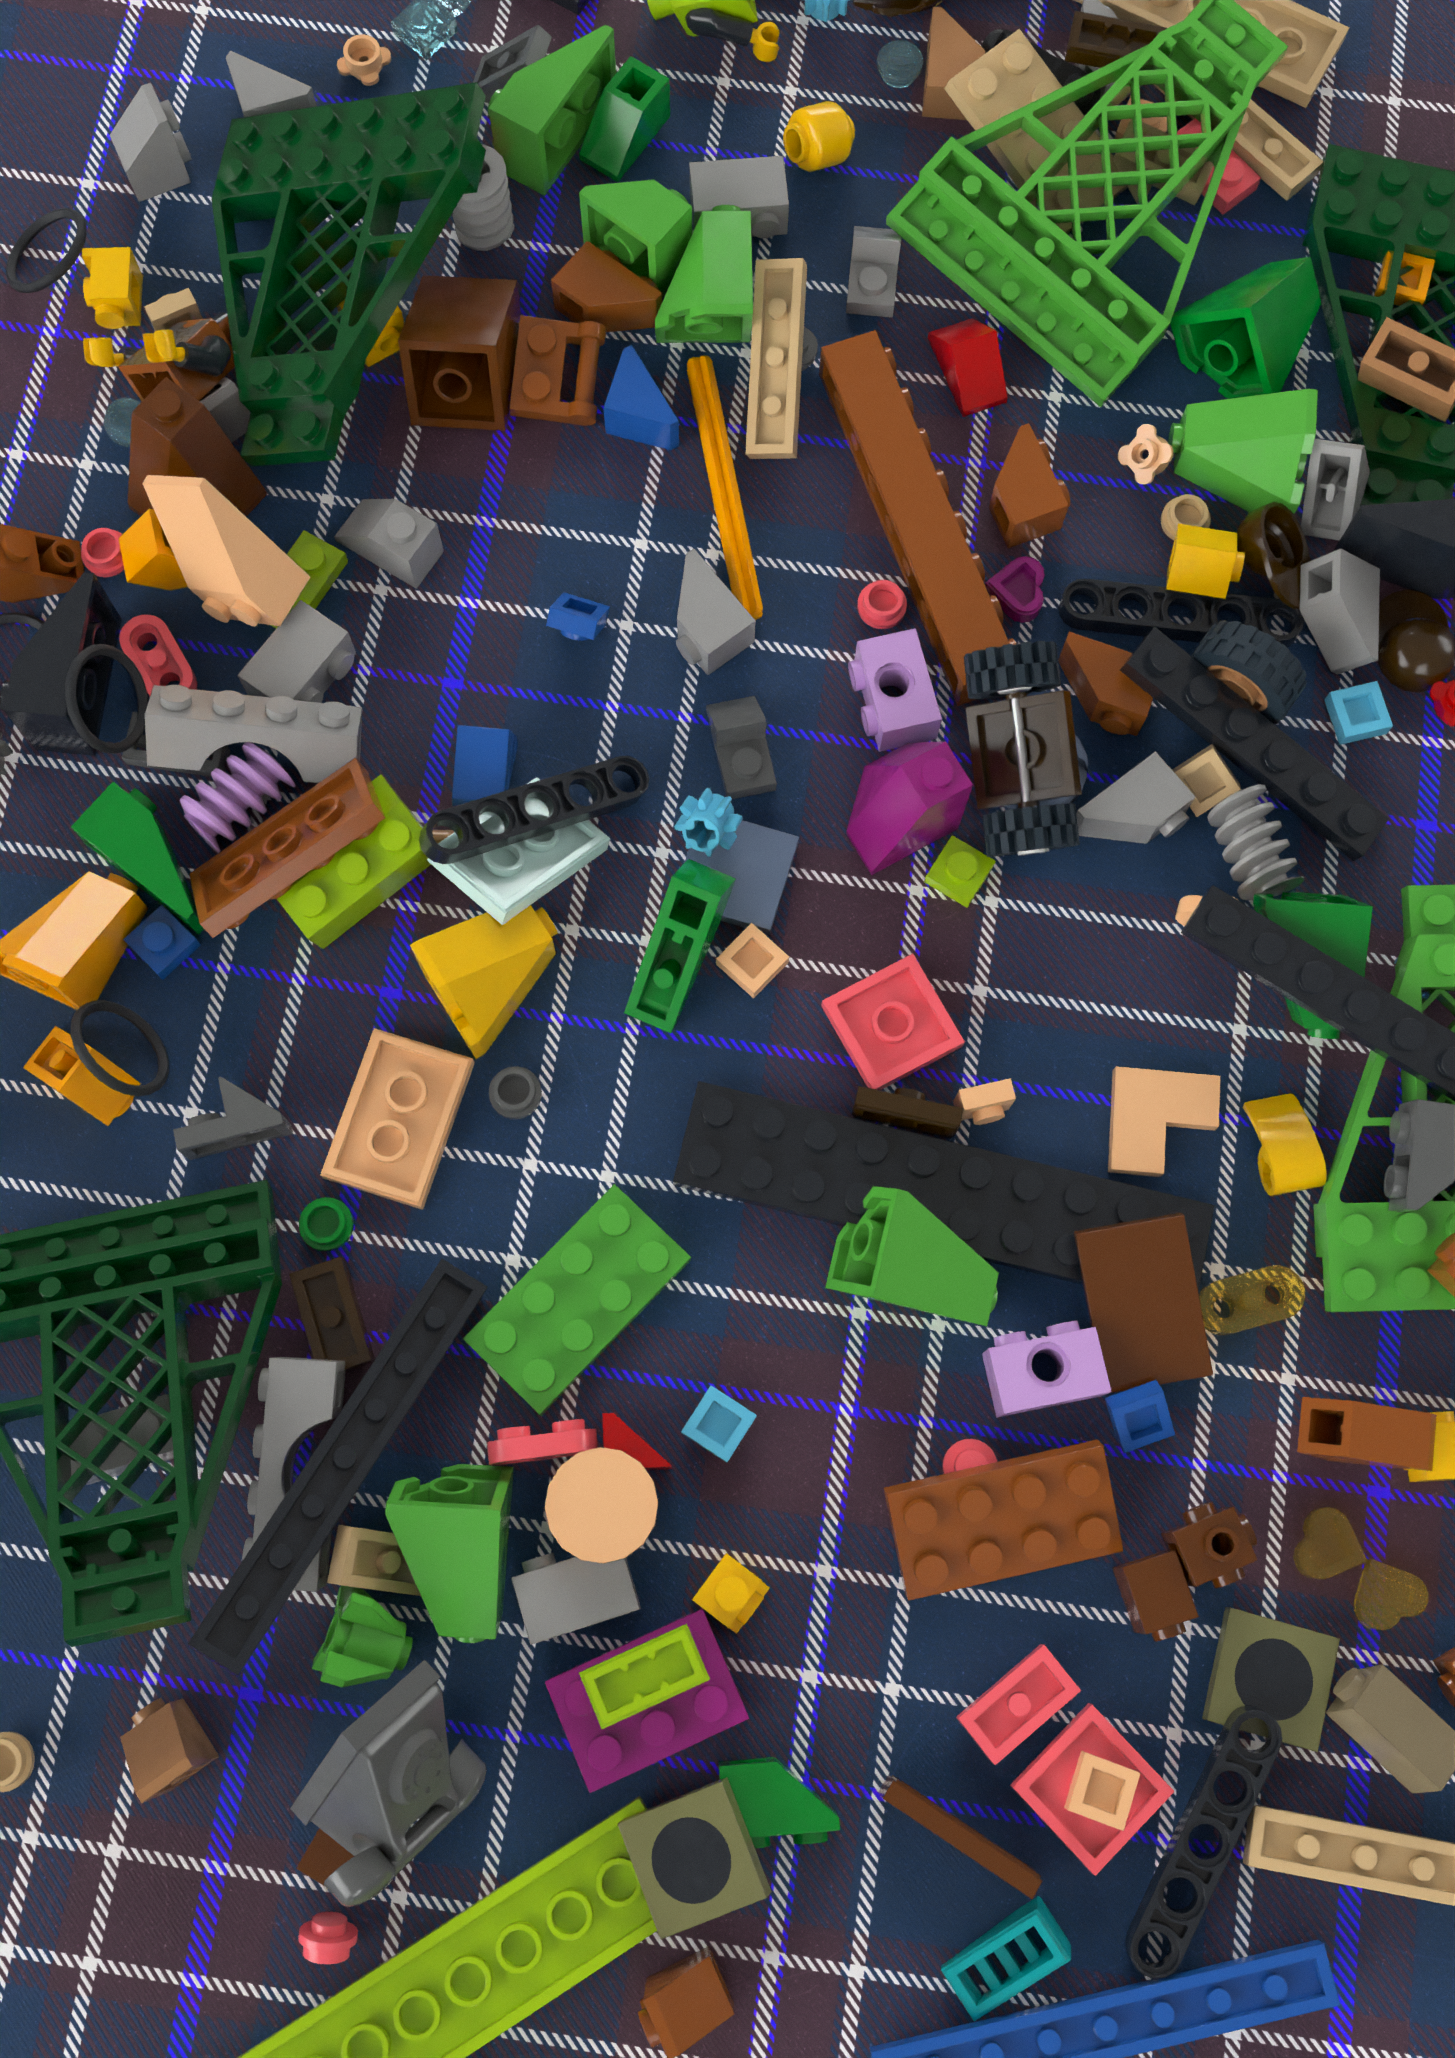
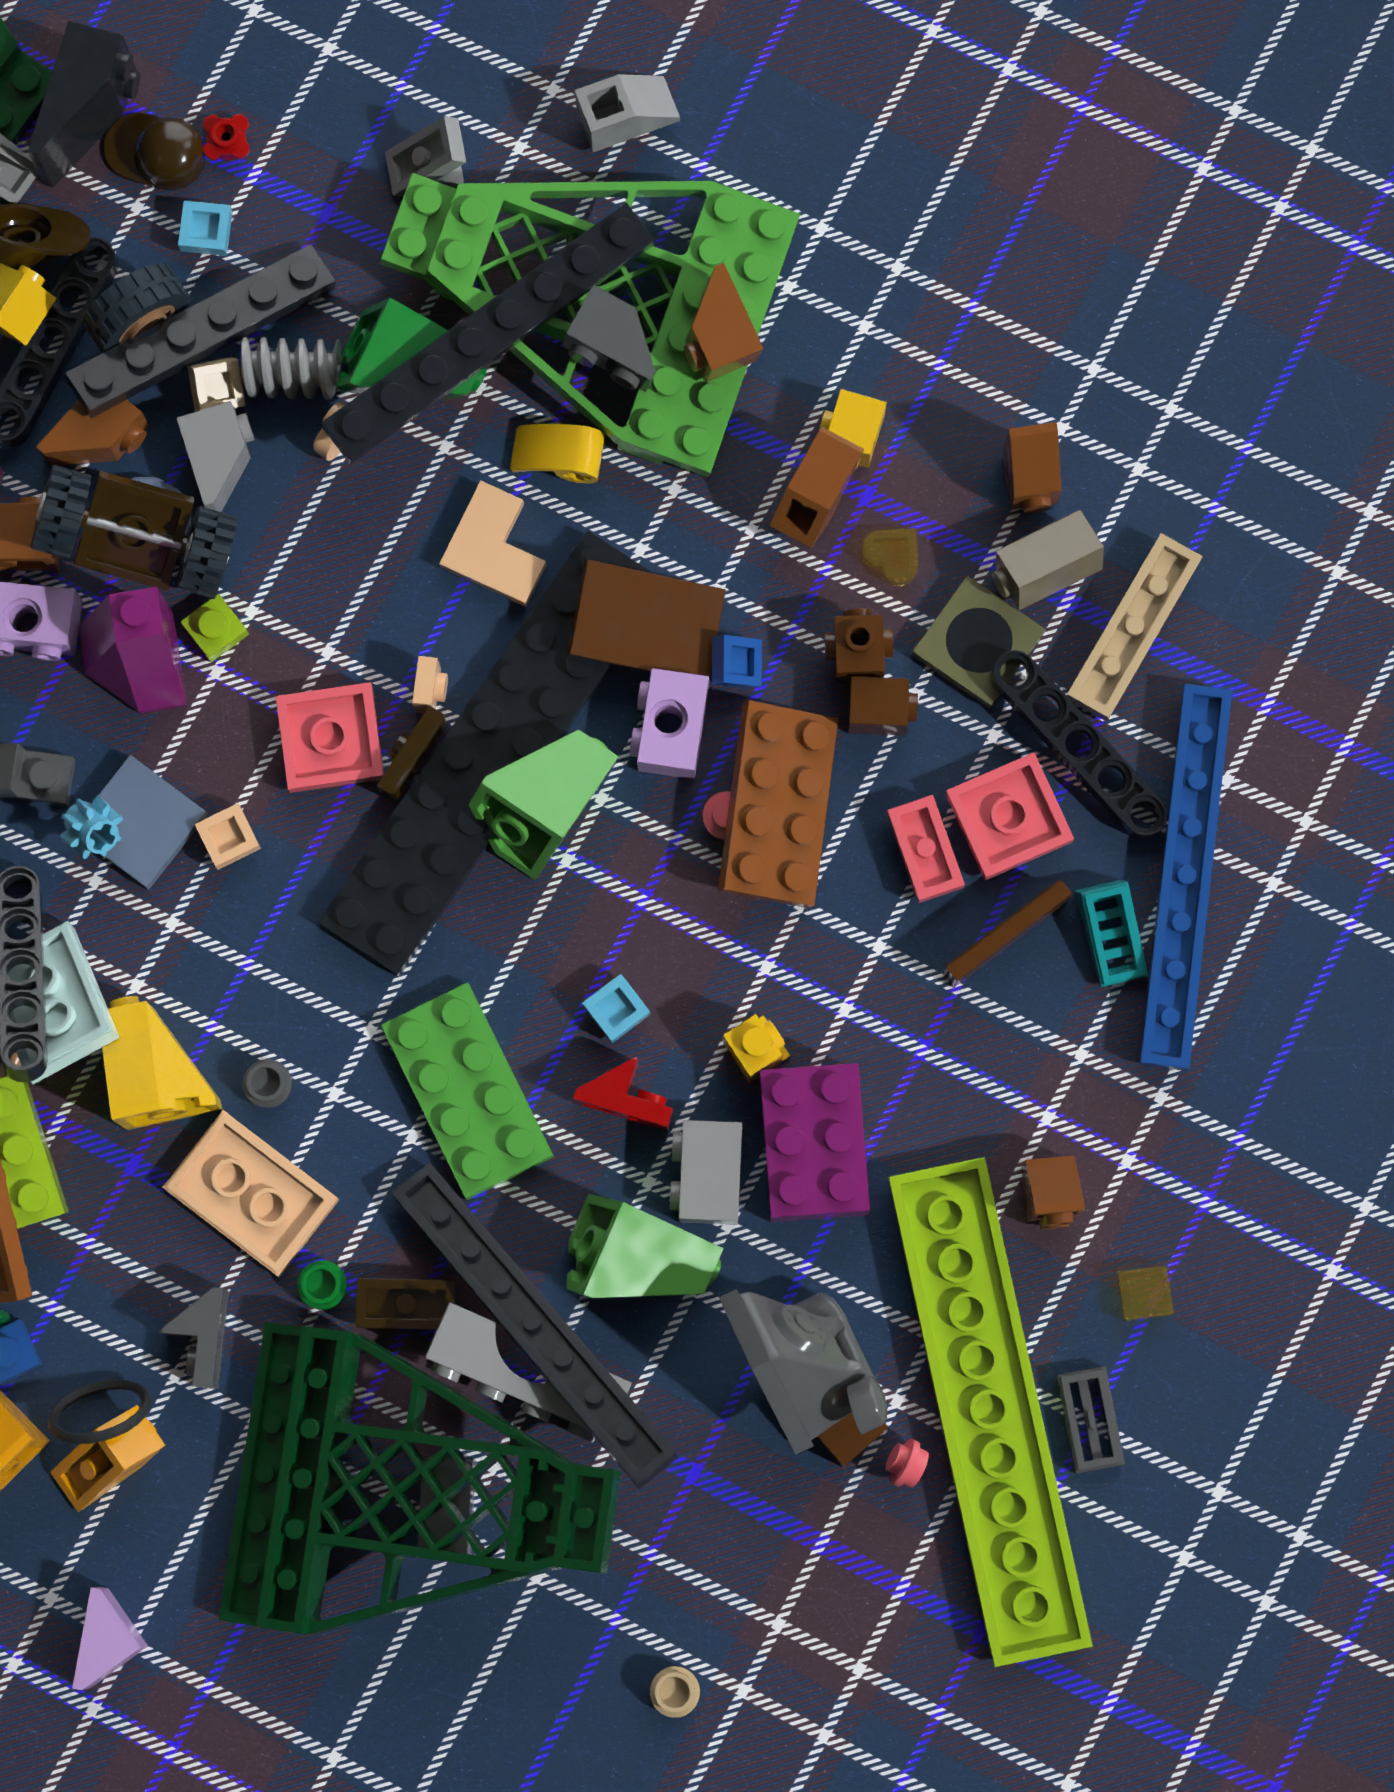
camera: 65 degrees left, 5 degrees up
(165, 1748) = (709, 1548): medium nougat slope -> none
(361, 1641) = (683, 1361): bright green brick -> none
(370, 1561) = (626, 1327): tan slope -> none
(519, 1446) = (583, 1139): coral plate -> none
(601, 1505) = (648, 1122): light nougat tile -> none
(644, 1676) = (795, 1130): lime plate -> none
(679, 944) = (191, 893): green slope -> none
(694, 1858) = (948, 1145): olive tile -> none
(777, 1802) = (926, 1073): green slope -> none
(1102, 1790) = (1011, 807): light nougat plate -> none
(1248, 1302) = (676, 536): clear yellow plate -> none
(1342, 608) = (106, 202): light grey slope -> none
(1388, 1595) = (948, 523): clear yellow tile -> none

